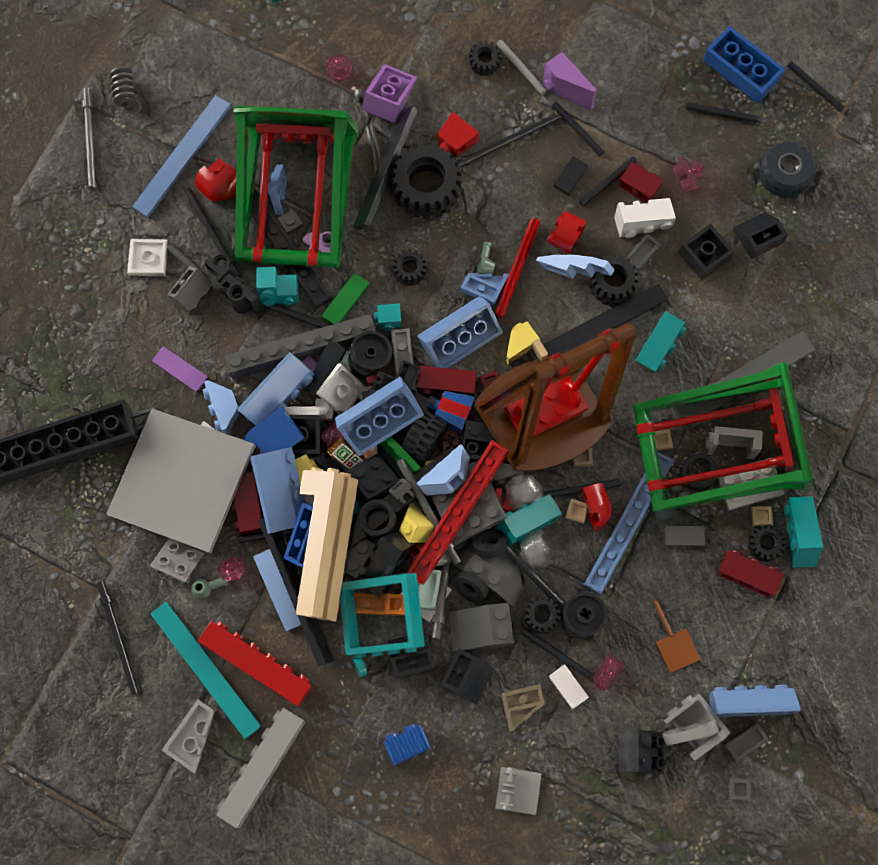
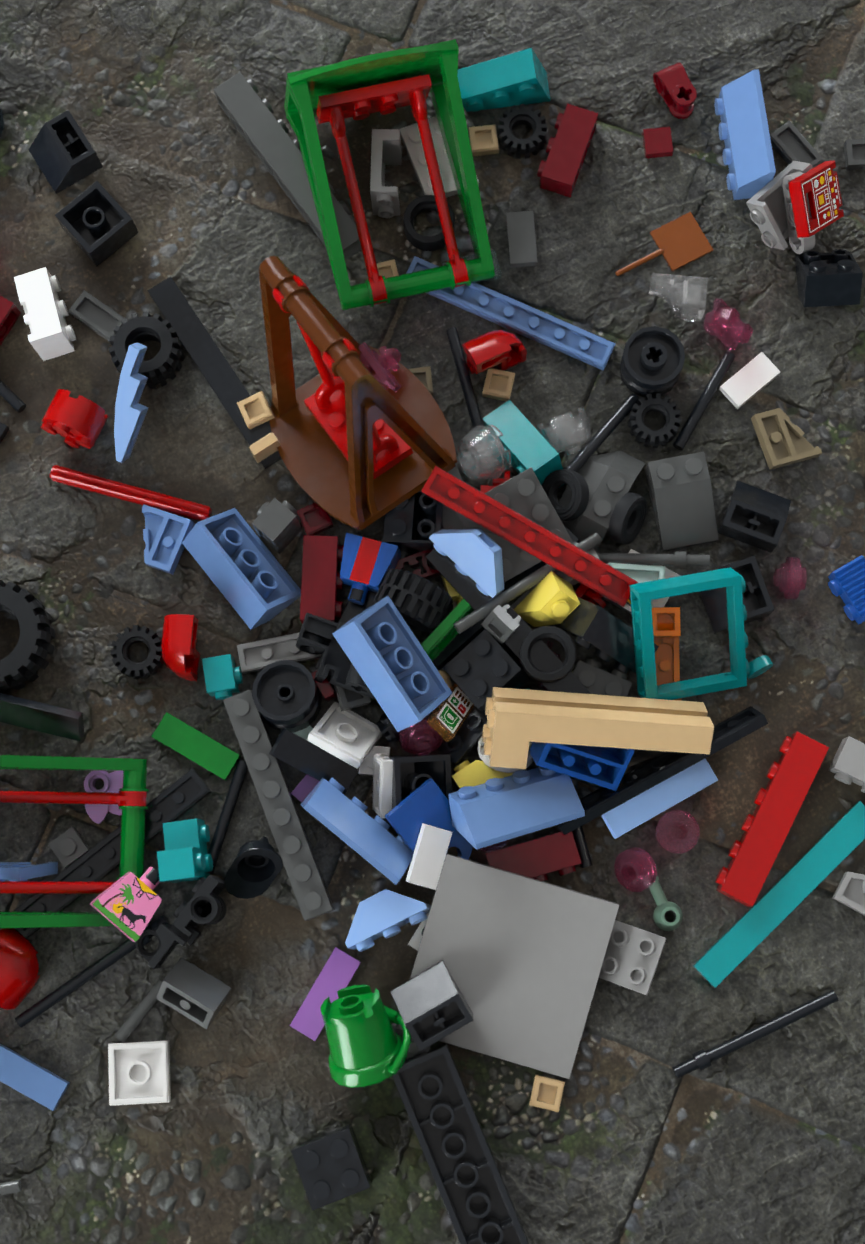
camera: 90 degrees left, 5 degrees up
(74, 365) = (331, 1167): none -> black brick
(100, 500) = (546, 1093): none -> tan tile
(146, 383) = (362, 1037): none -> green piece
(159, 427) = (431, 1005): none -> slope
(246, 250) = (130, 902): none -> torso
(253, 433) = (429, 856): none -> white tile
(253, 599) = (677, 832): none -> clear pink plate
(262, 328) = (253, 869): none -> black piece
(408, 289) = (180, 645): none -> red brick
(419, 695) = (791, 577): none -> clear pink plate
(484, 354) = (277, 524): none -> dark grey brick
(485, 264) = (129, 541): sand green bar -> none
(520, 341) = (249, 478): light yellow slope -> none
(566, 344) = (255, 410): none -> tan tile
(590, 428) = (381, 364): none -> clear pink hips
(634, 647) = (683, 293): none -> clear arch
(661, 342) = (232, 275): teal wedge -> none
(696, 748) = (823, 196): none -> red container
(755, 640) = (657, 142): none -> dark red tile
(797, 656) = (676, 90): none -> dark red piece

